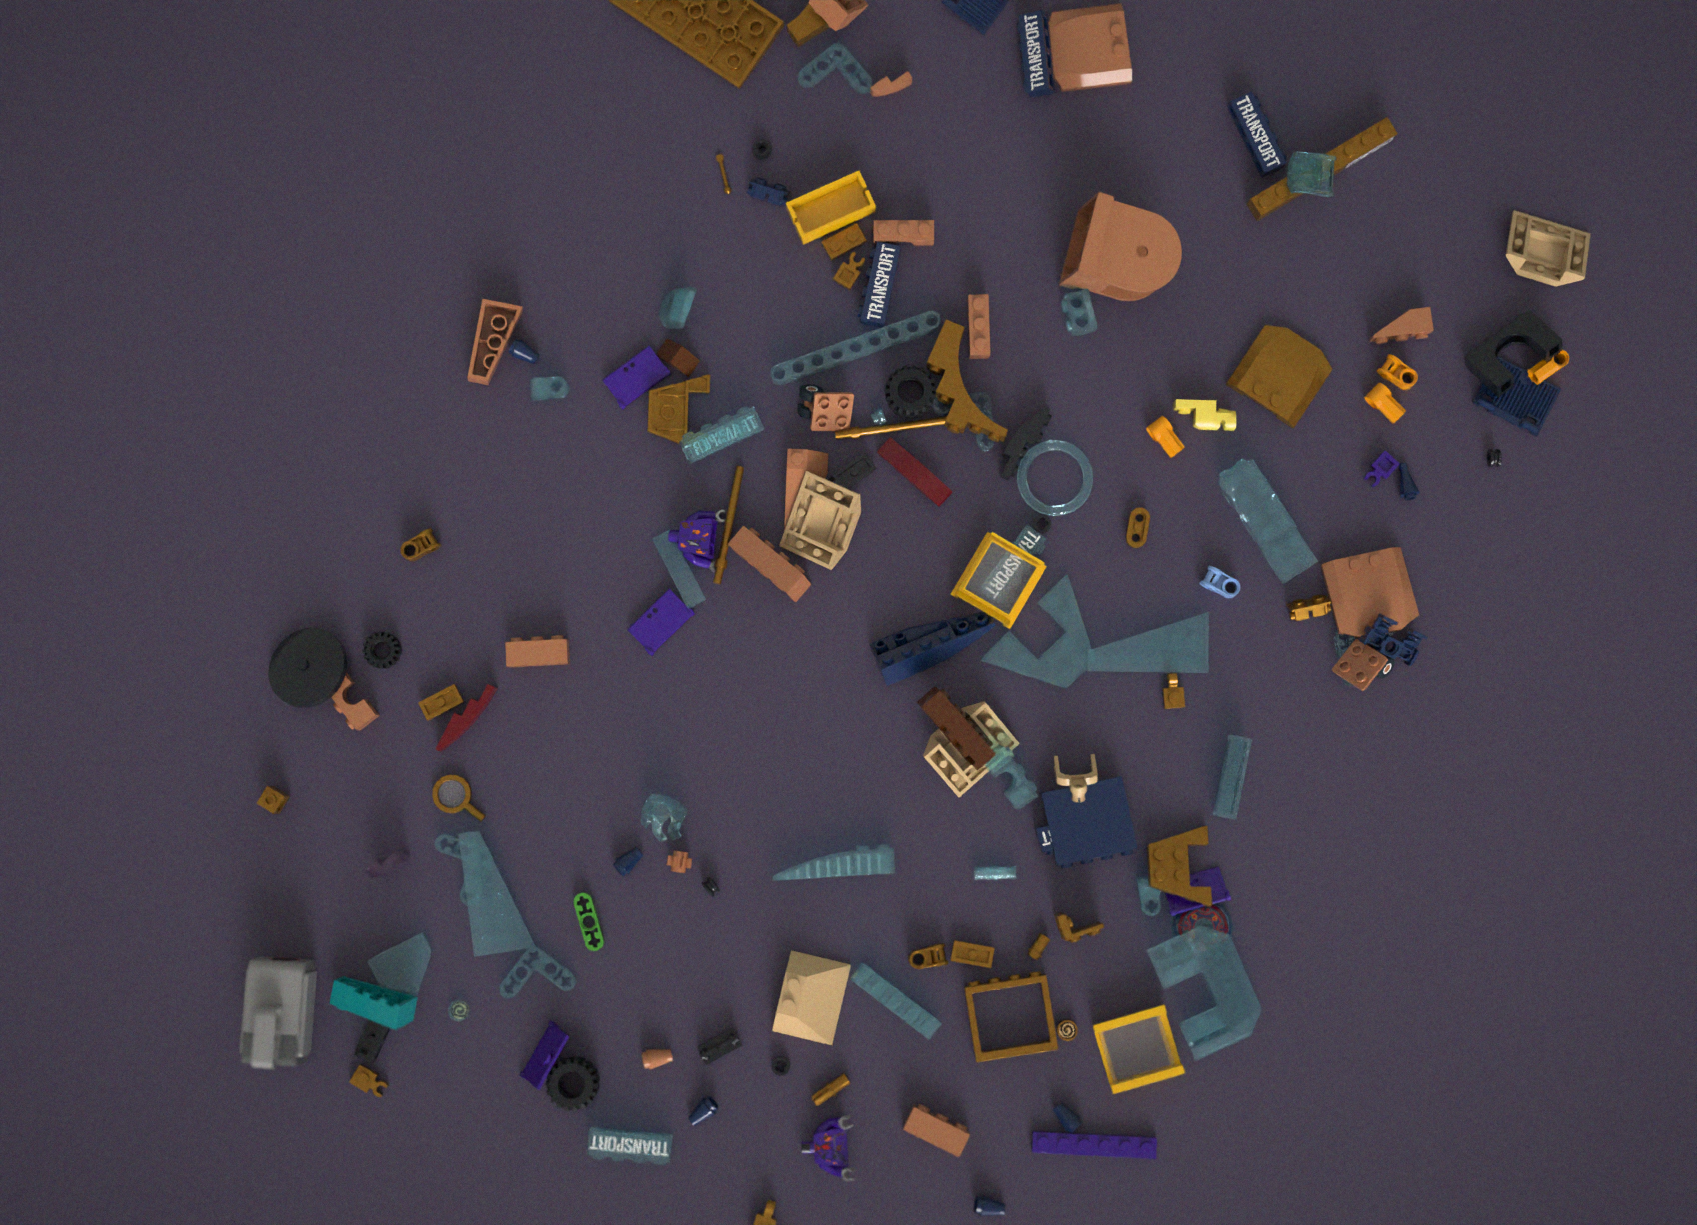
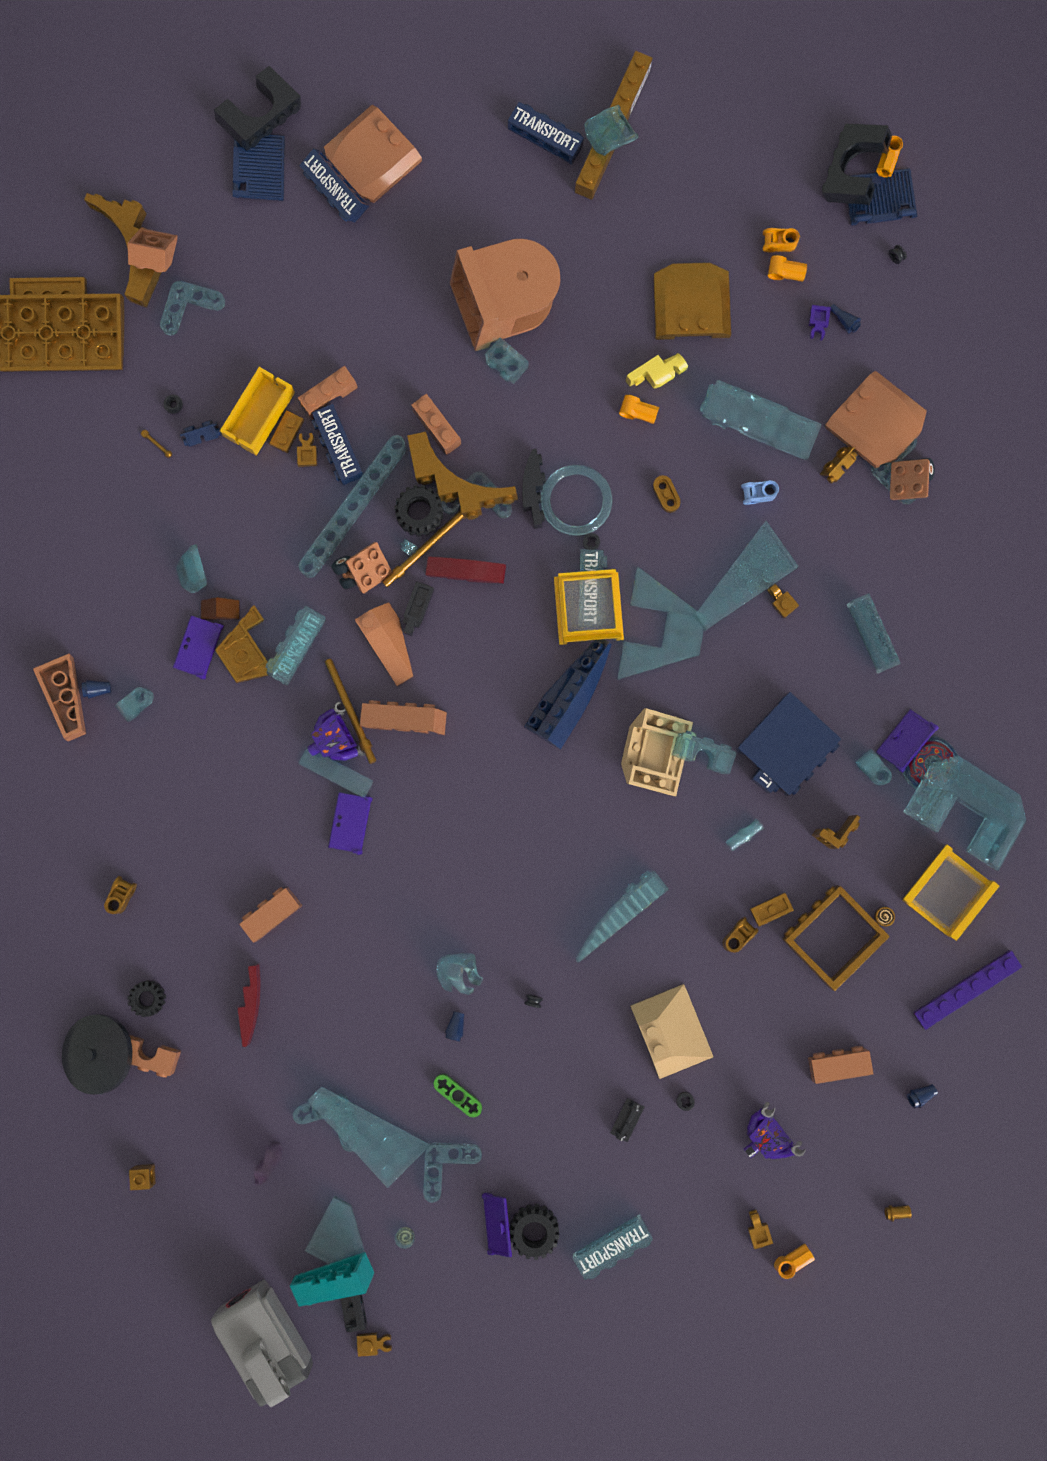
camera: 35 degrees left, 0 degrees up
(441, 702) = (222, 1006): pearl gold plate -> none
(453, 795) = (282, 1072): piece -> none
(656, 1057) = (584, 1165): nougat cone -> none
(679, 861) = (495, 999): nougat gear -> none
(706, 1108) = (651, 1177): dark blue cone -> none
(822, 521) = (420, 657): tan slope -> none
(830, 1089) = (736, 1092): pearl gold axle -> none
(887, 87) = (236, 290): nougat slope -> none
(895, 1000) = (738, 987): clear light blue beam -> none
(956, 727) = (637, 744): reddish brown wedge -> none
(1038, 946) = (818, 868): pearl gold pin -> none
(1067, 1117) = (935, 984): dark blue cone -> none
(1077, 783) = (760, 720): tan piece -> none
(1170, 866) = (875, 735): pearl gold wing -> none
(1400, 649) = (910, 449): dark blue piece -> none
(1412, 323) = (765, 194): nougat slope -> none
(1546, 250) = (827, 70): tan slope -> none

